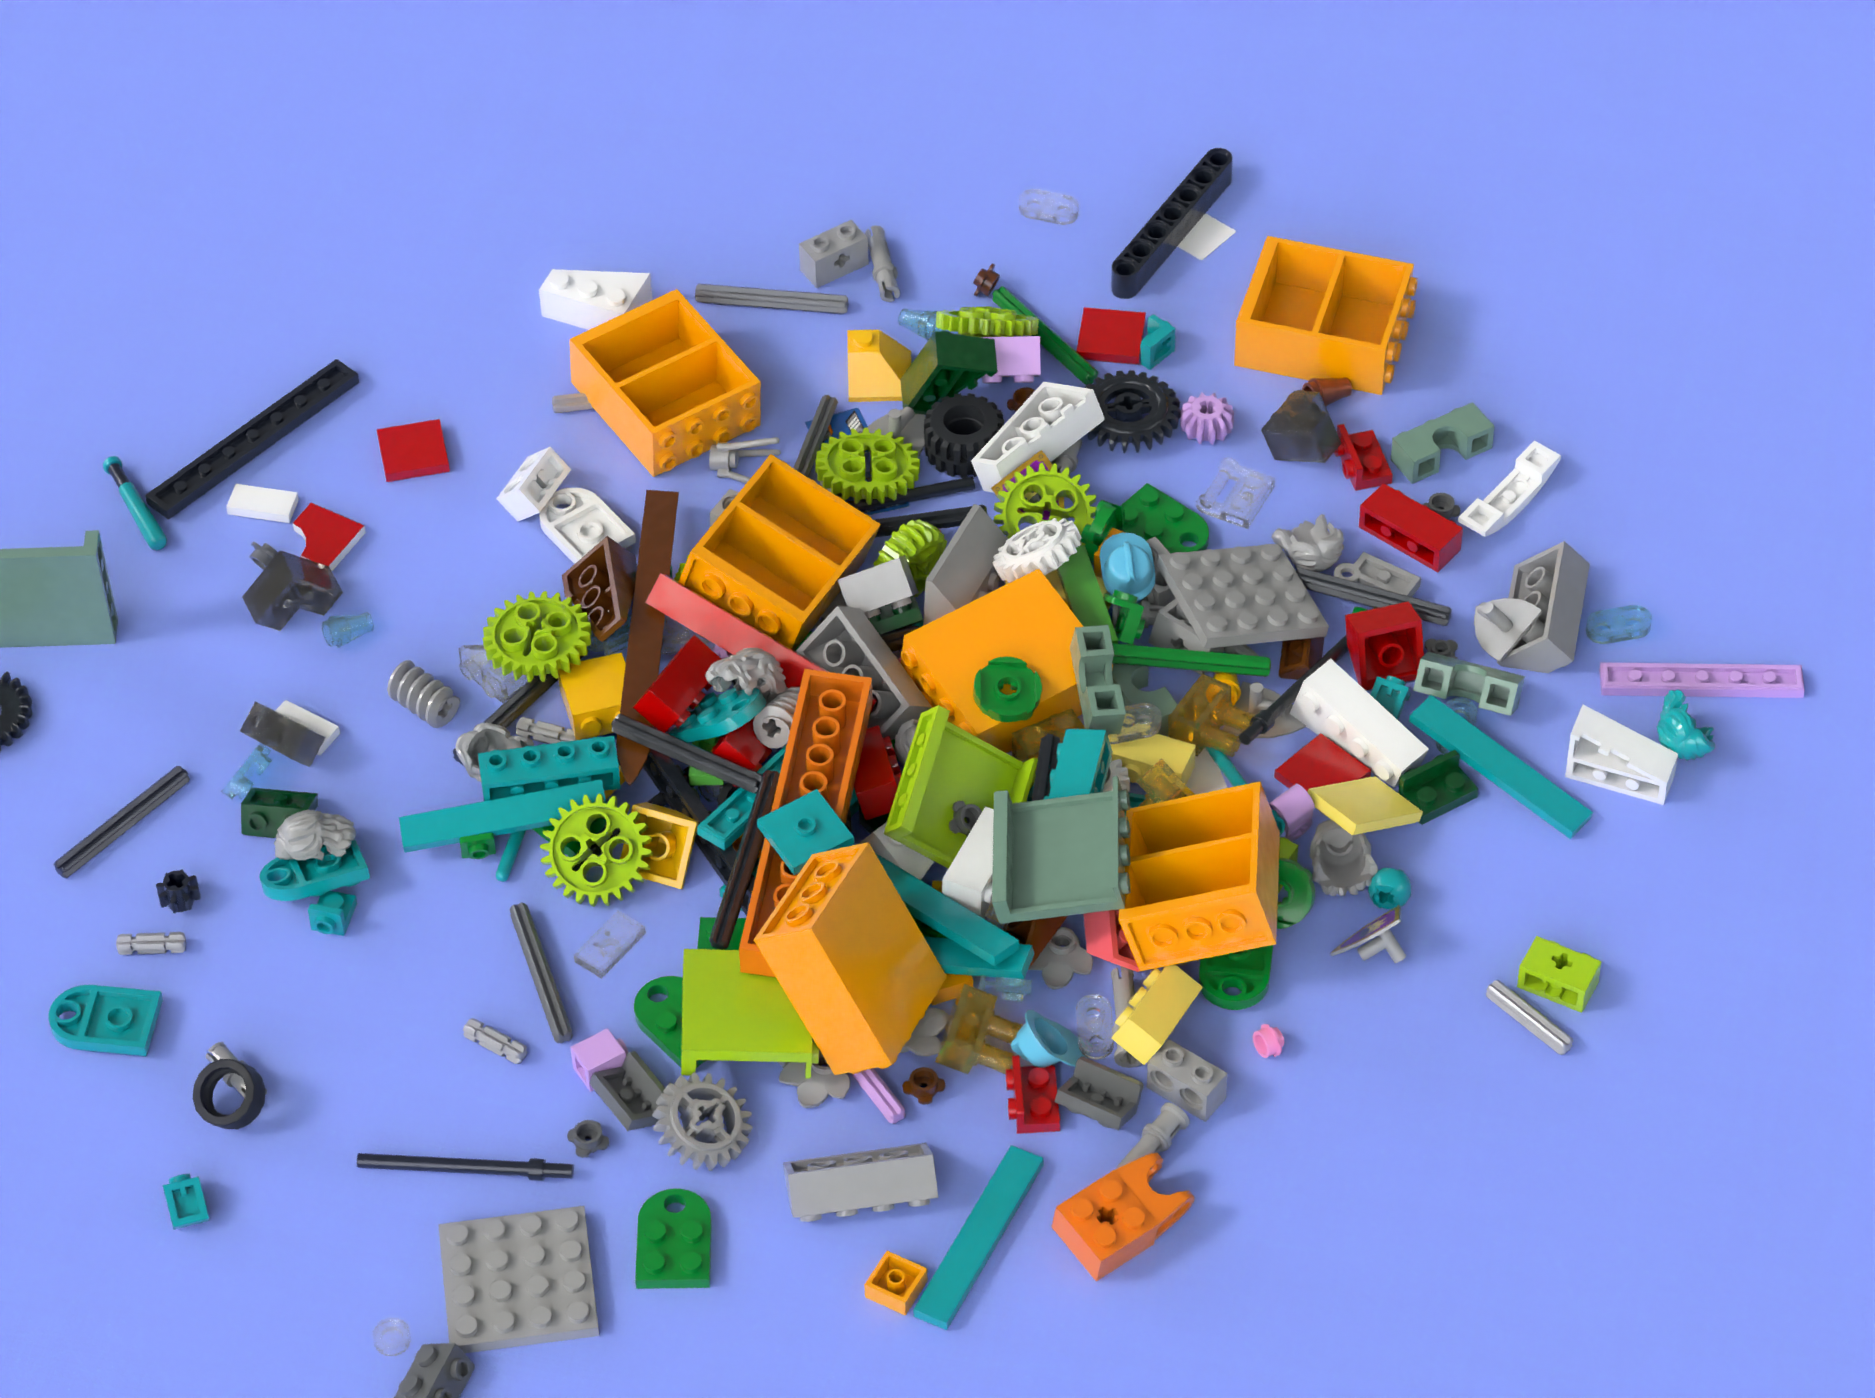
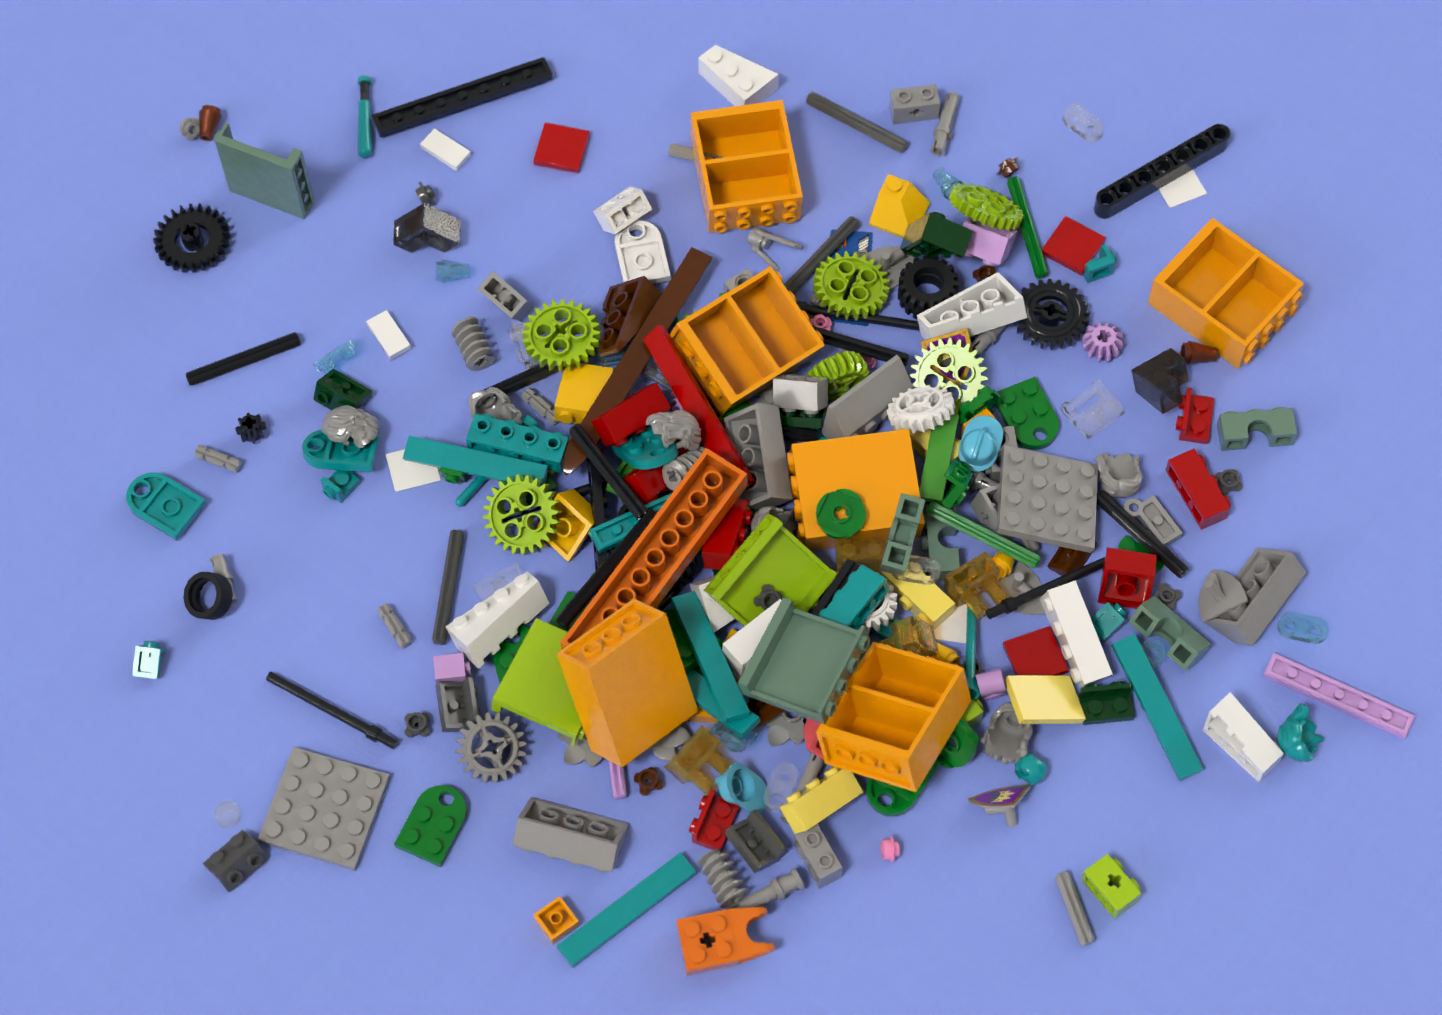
camera: 25 degrees right, 15 degrees up
(282, 734) = (368, 338): clear smoke brick -> none
(327, 535) = (474, 193): red tile -> none
(416, 868) = (409, 474): none -> white sticker
(436, 627) = (505, 297): none -> light grey brick
(628, 975) = (497, 618): none -> white wedge
(804, 829) = (643, 574): teal plate -> none
(1080, 1150) = (721, 877): none -> light grey piece
(1513, 493) = (1284, 490): white slope -> none

